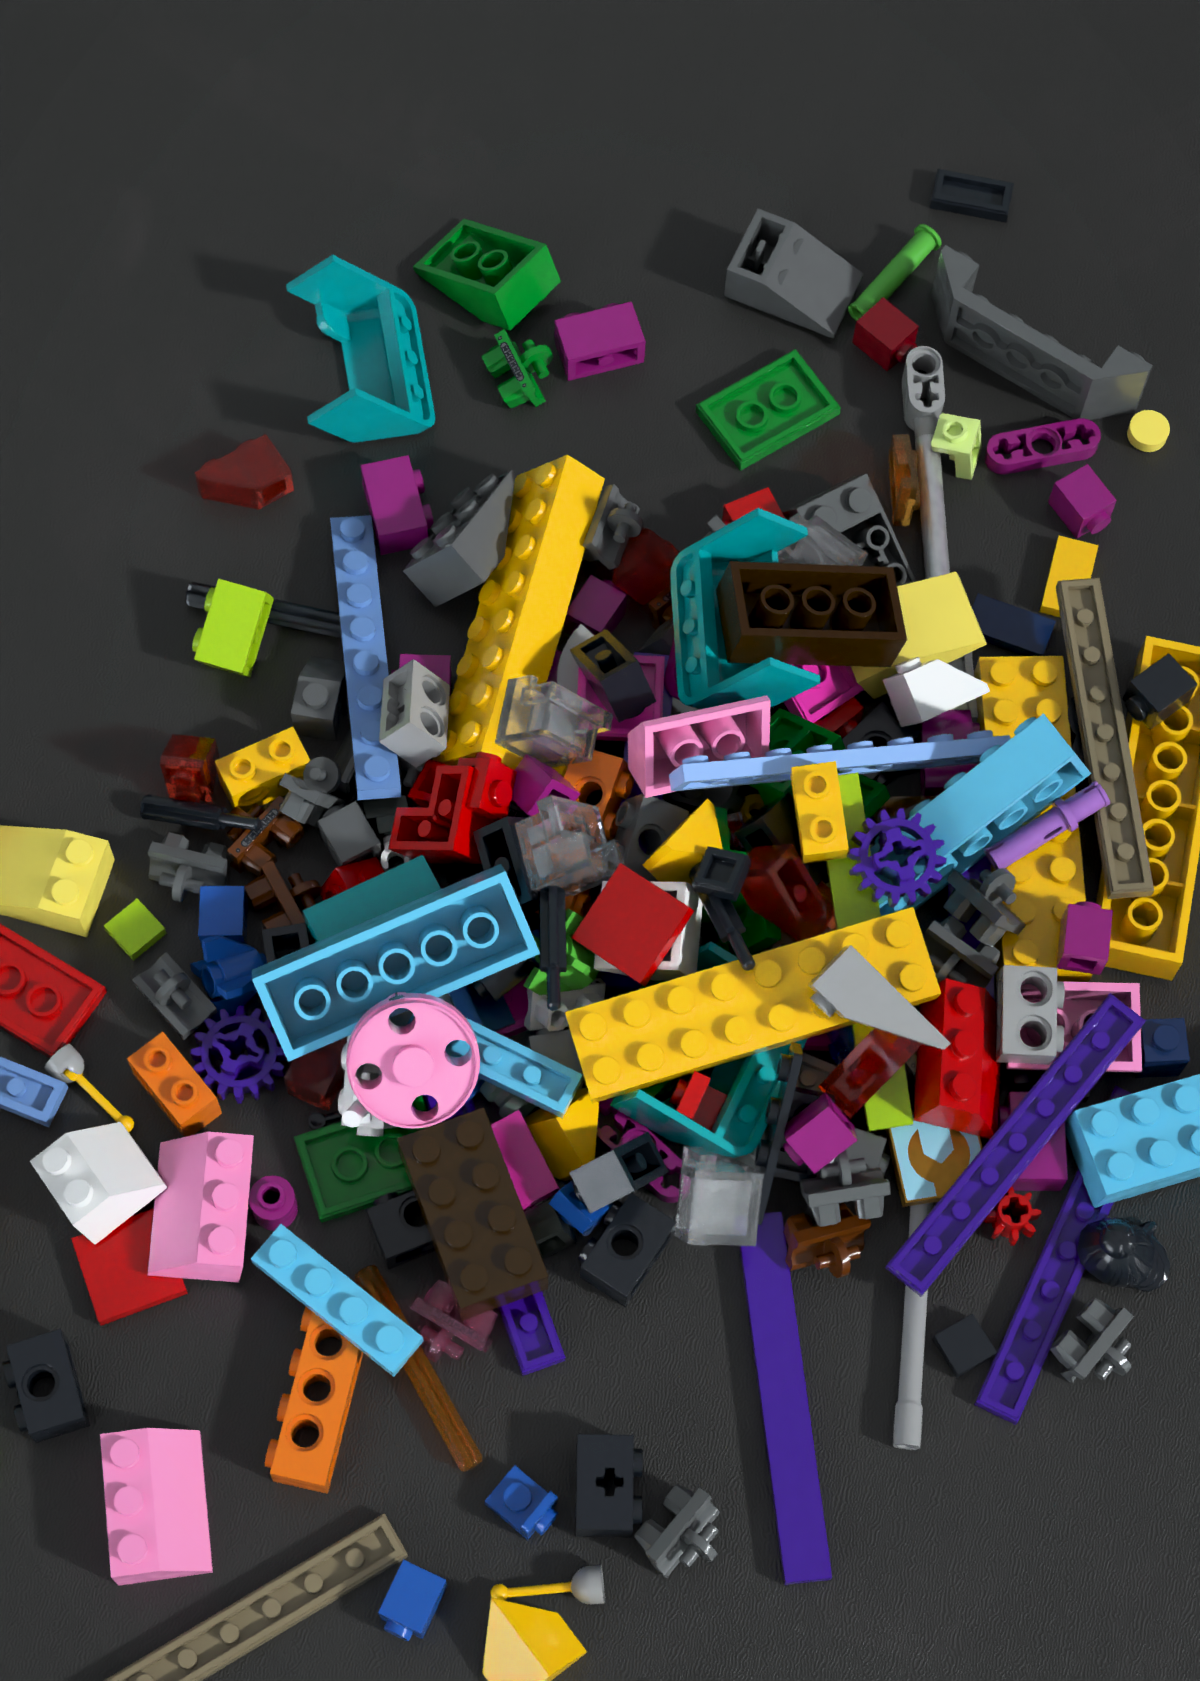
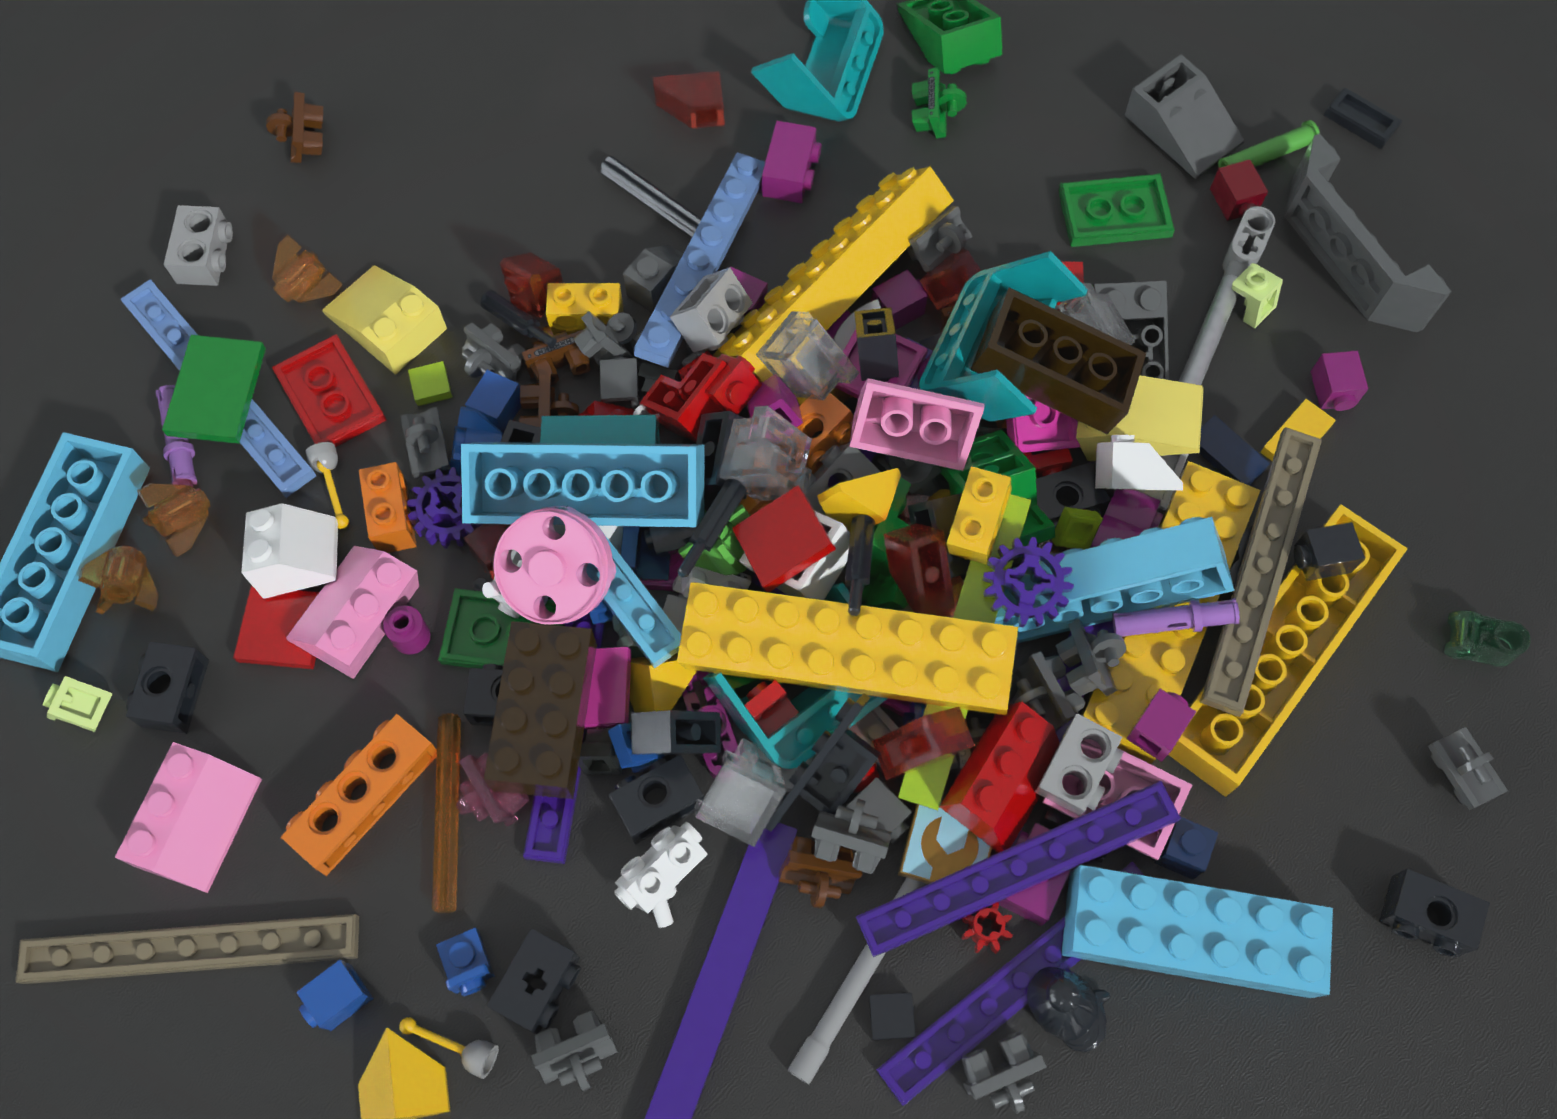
camera: 30 degrees right, 0 degrees up
(232, 627) = (619, 197): lime brick -> none
(337, 1300) = (405, 728): medium azure plate -> none
(465, 541) = (821, 204): dark grey slope -> none
(599, 340) = (1009, 107): magenta brick -> none
(669, 1317) = (653, 876): none -> white brick
(721, 873) = (873, 529): black tile -> none
(818, 1134) = (849, 779): magenta brick -> none
(859, 758) = (1041, 490): light blue plate -> none
(864, 996) = (934, 680): light grey slope -> none
(902, 784) = (1076, 528): none -> lime tile
(903, 479) = (1193, 314): clear orange wing -> none
(1052, 432) = (1339, 318): magenta beam -> none
(1148, 430) = (1423, 350): light yellow tile -> none

